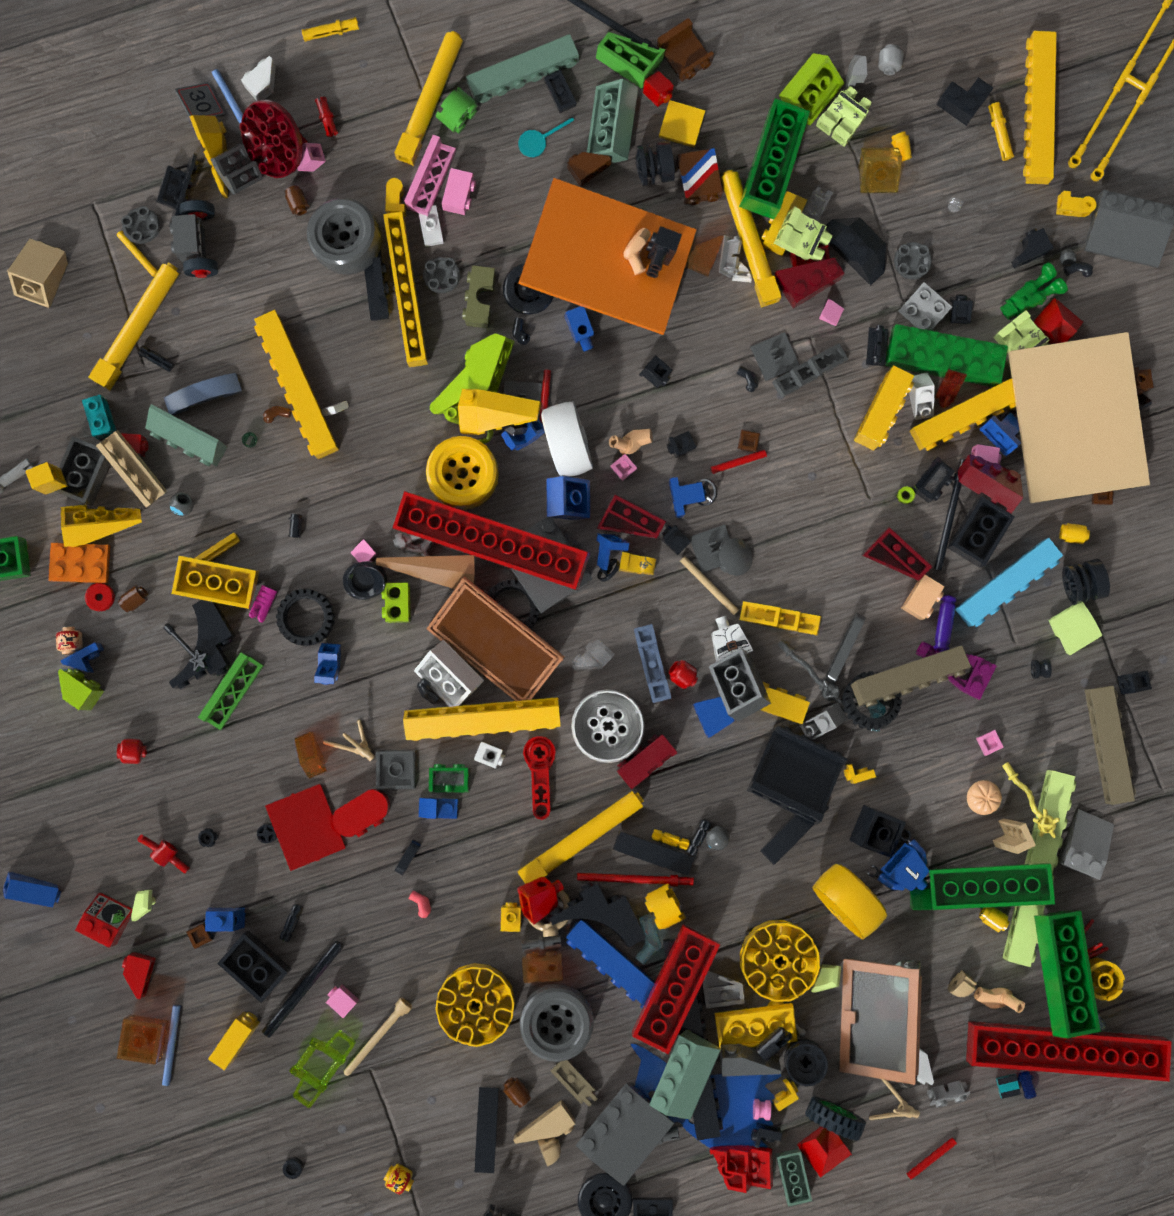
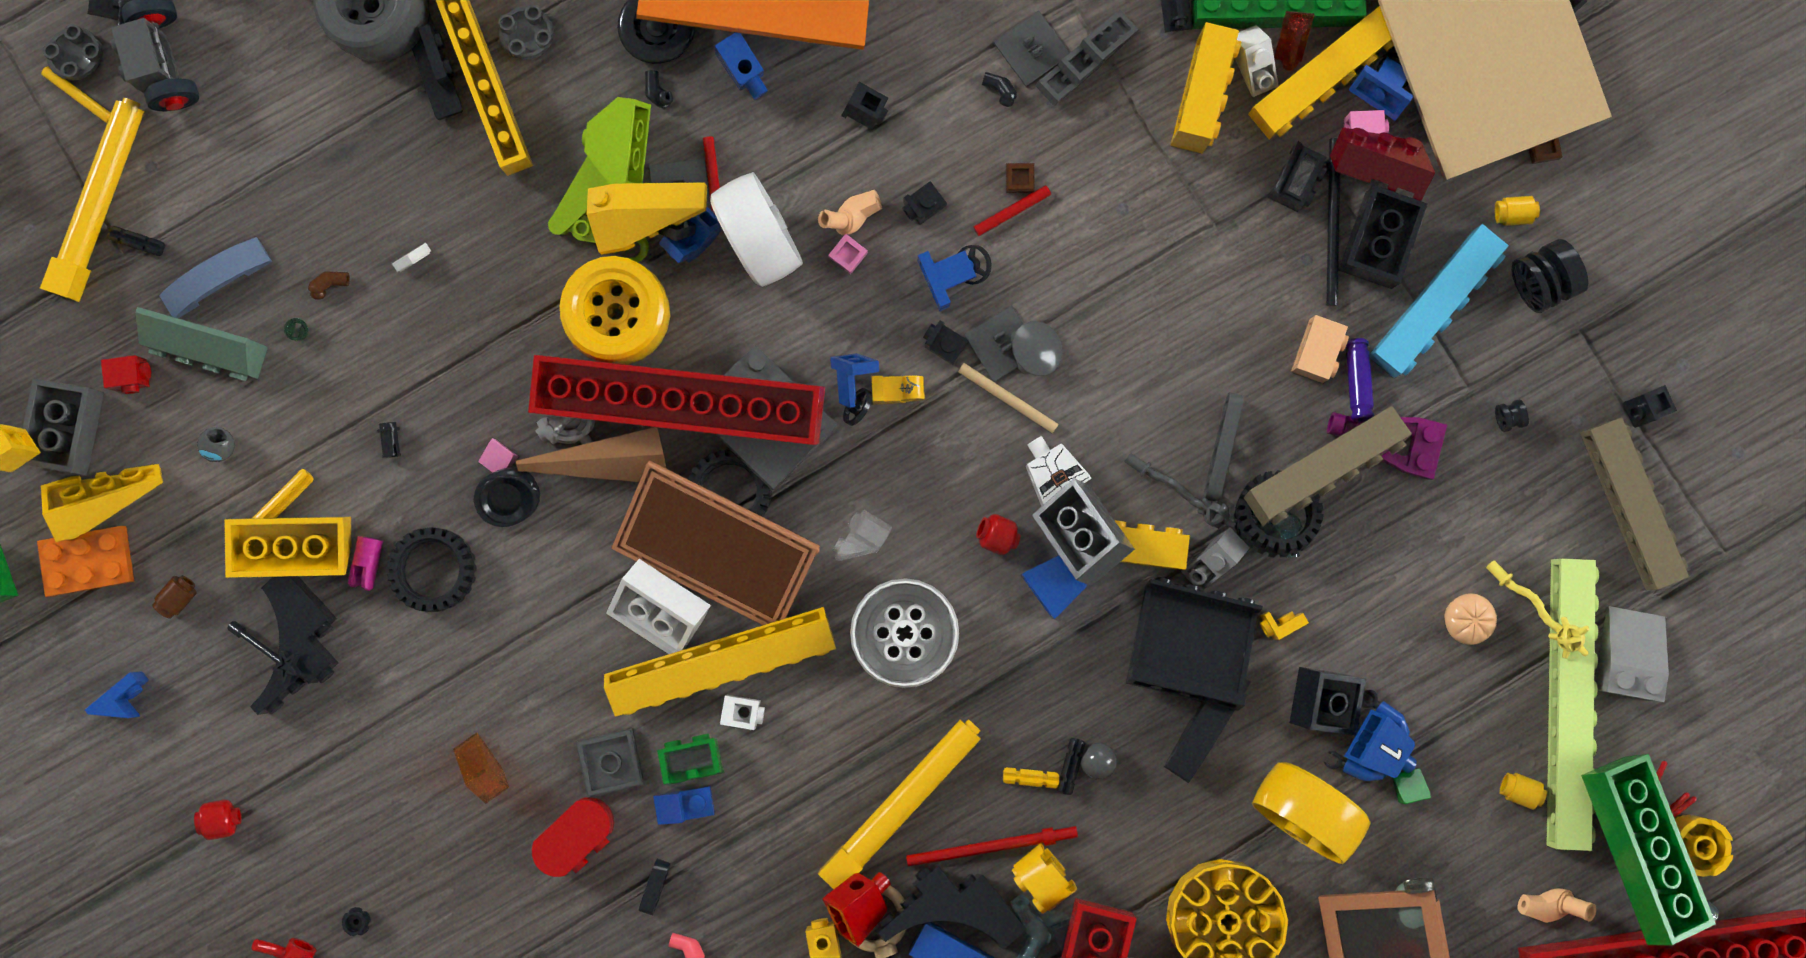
camera: 10 degrees left, 0 degrees up
(69, 641) = (93, 677): light nougat head -> none
(78, 690) = (120, 747): lime slope -> none
(99, 416) = (70, 343): teal brick -> none
(107, 600) = (113, 604): red piece -> none
(131, 468) = (130, 407): tan fence -> none
(224, 687) = (335, 696): bright green fence -> none
(263, 833) = (437, 900): black wheel -> none
(296, 385) = (347, 235): yellow brick -> none
(304, 827) = (494, 875): red piece -> none
(328, 664) = (479, 630): blue brick -> none
(361, 748) = (553, 743): tan plant -> none
(402, 602) = (568, 517): lime brick -> none
(426, 693) = (631, 642): black arm -> none
(480, 280) = (585, 27): olive arch -> none
(540, 770) = (820, 718): red beam -> none
(568, 498) = (776, 314): blue brick -> none
(630, 519) = (873, 326): dark red wedge -> none
(646, 760) = (970, 671): dark red wedge -> none
(652, 663) = (949, 528): sand blue slope -> none
(653, 853) = (1010, 803): black slope -> none
(780, 618) = (1121, 423): yellow slope -> none
(827, 978) = (1301, 930): yellowish green piece -> none
(897, 555) = (1270, 296): dark red wedge -> none
(911, 492) = (1271, 204): lime axle -> none
(962, 985) = (1497, 897): tan piece -> none
(989, 742) = (1461, 538): bright pink plate -> none
(992, 886) = (1512, 746): green brick -> none
(1016, 837) = (1531, 667): tan fence -> none
(1075, 628) = (1547, 346): yellowish green slope -> none

